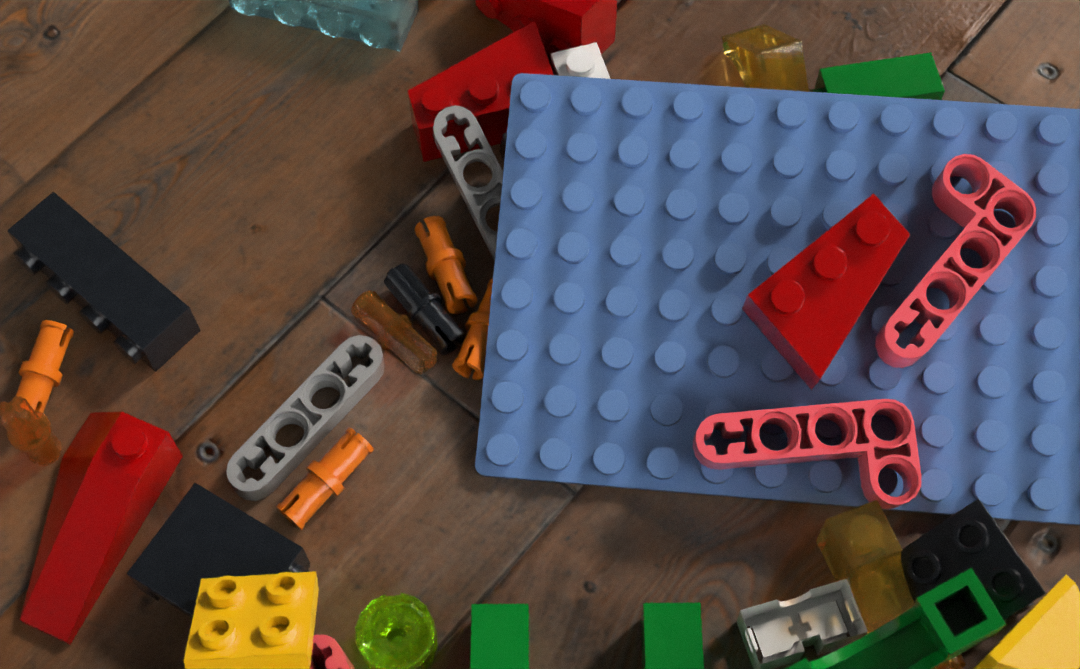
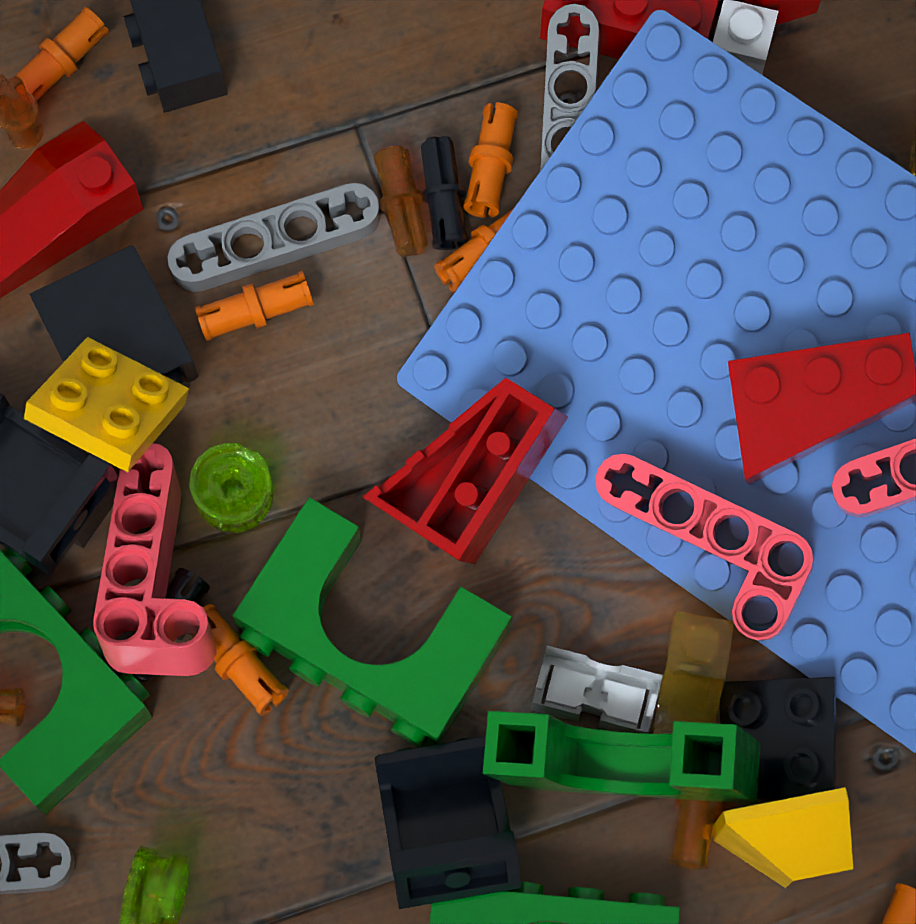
camera: 30 degrees right, 10 degrees up
(592, 505) = (472, 472): none -> red wedge

